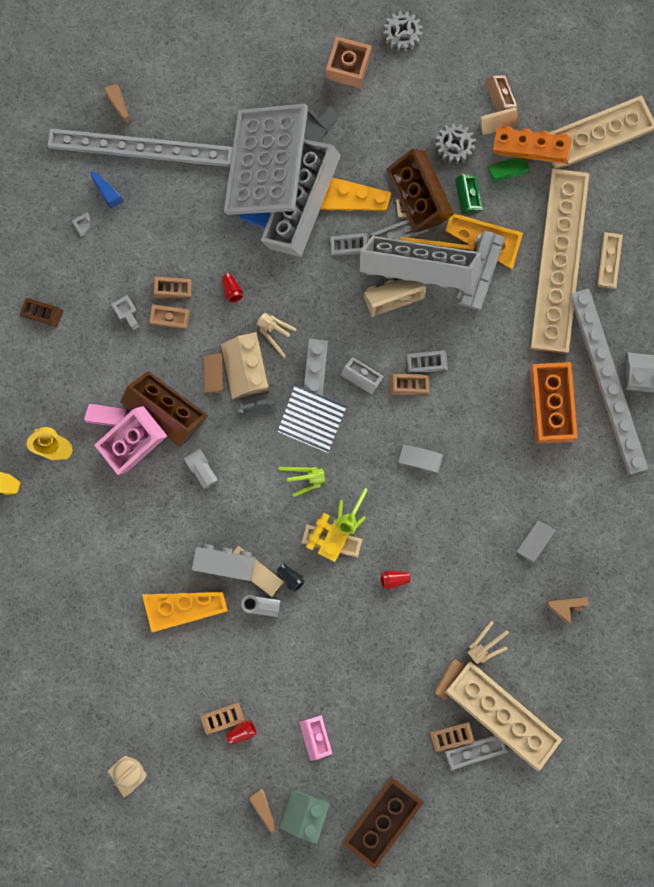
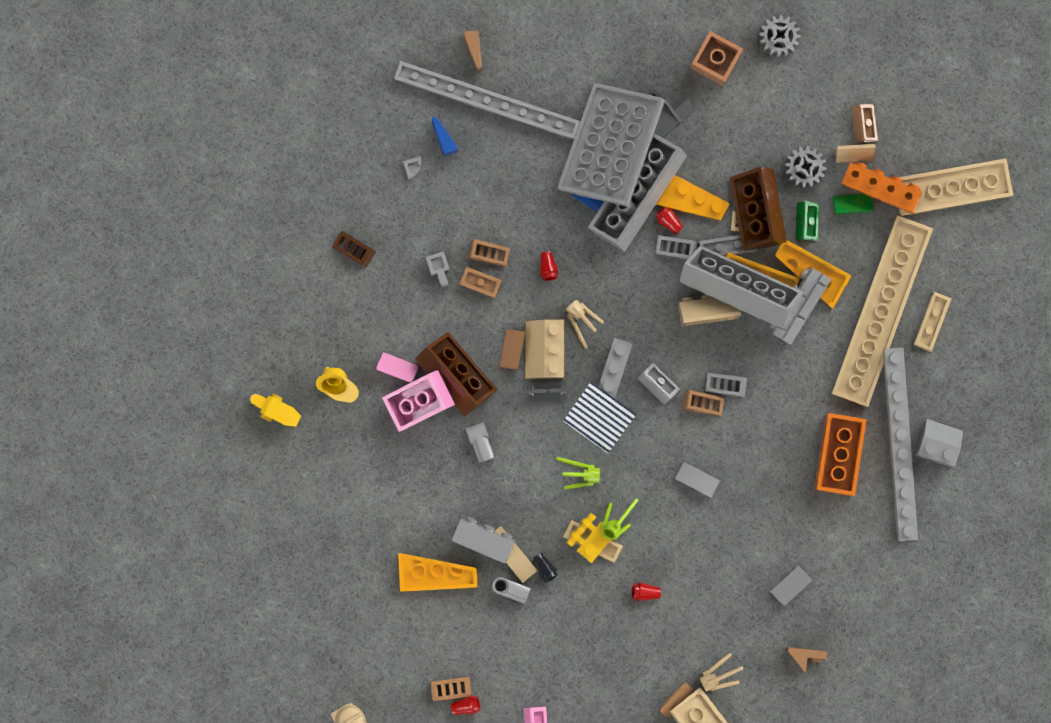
camera: 10 degrees right, 5 degrees up
(337, 219) = (669, 220): none -> red cone

